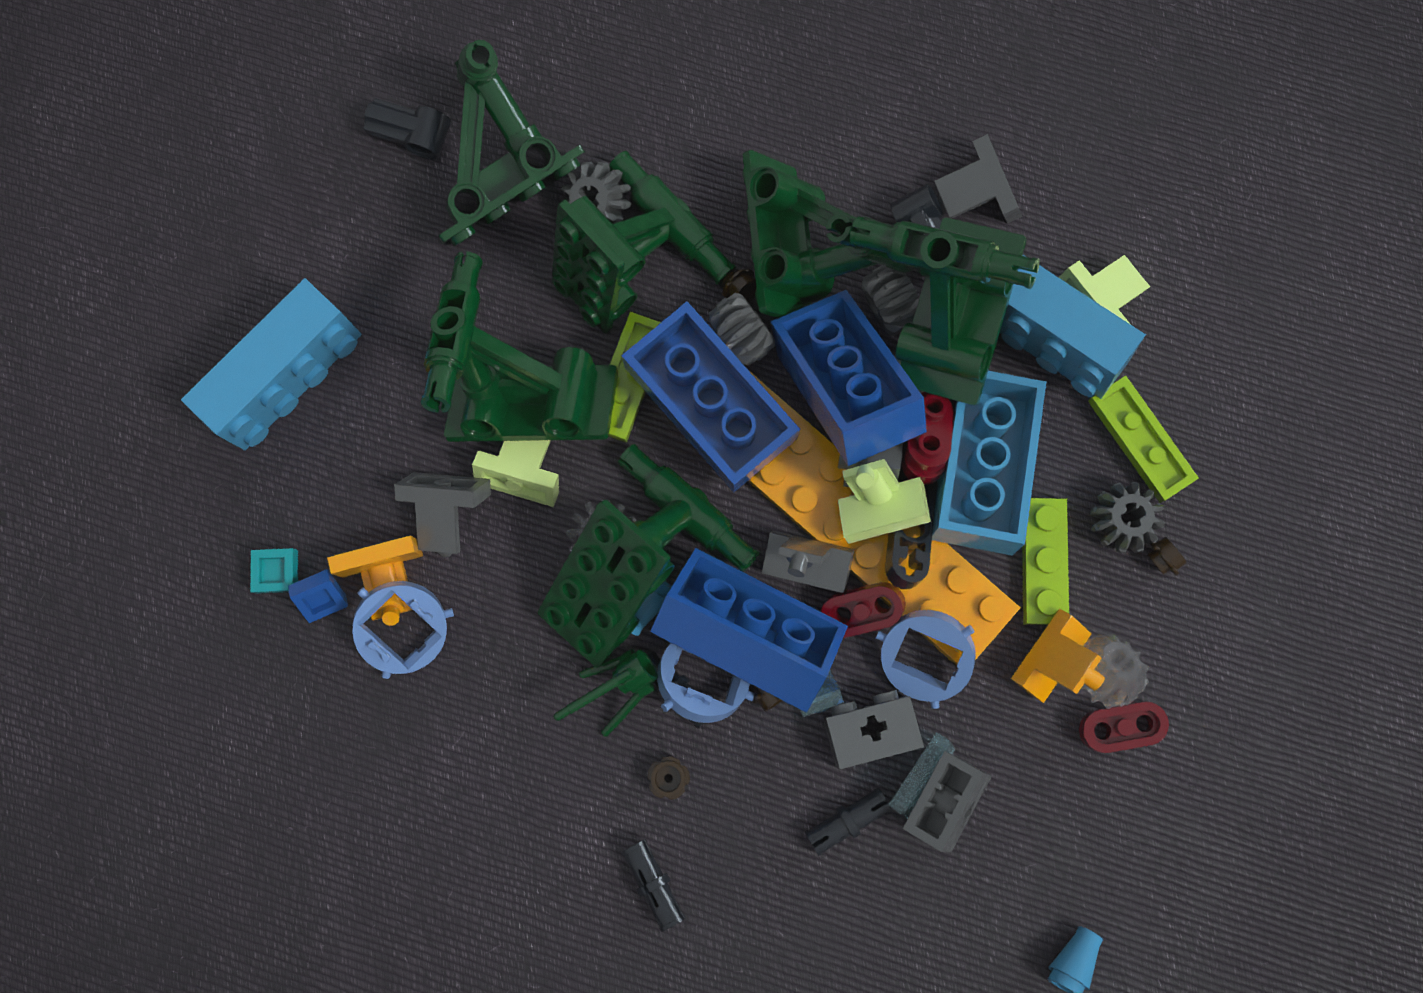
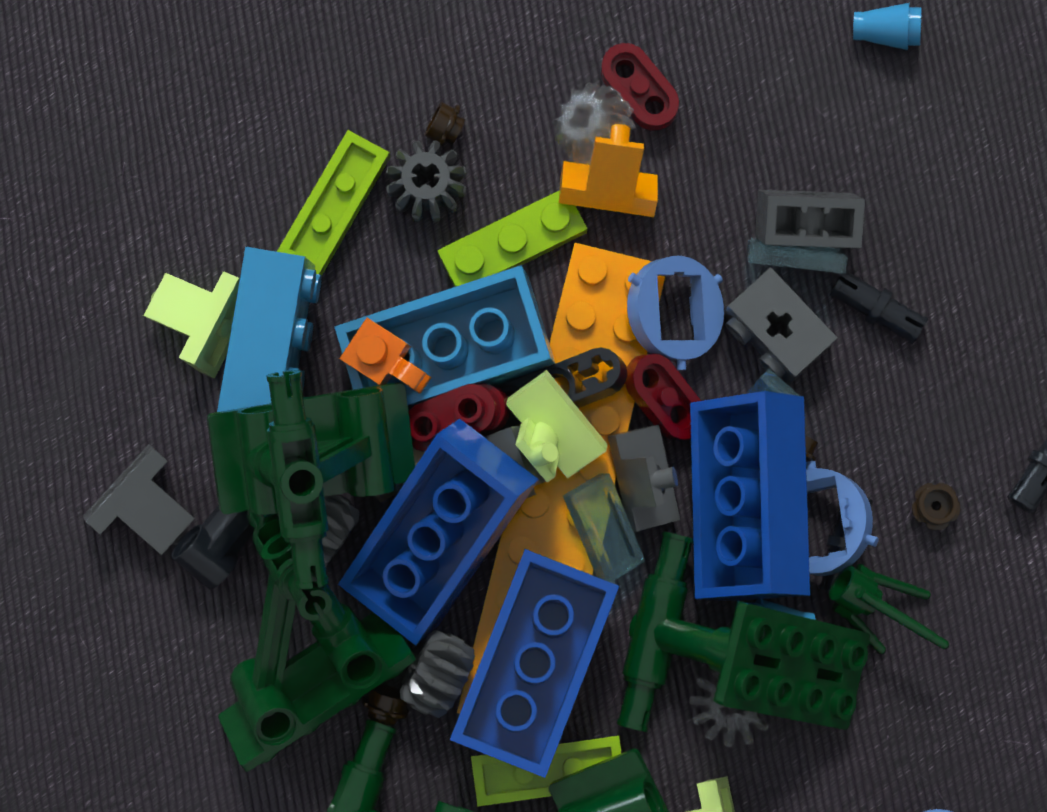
camera: 120 degrees left, 0 degrees up
(785, 509) = (604, 527): none -> clear light blue tile
(1004, 400) = (380, 356): none -> orange plate

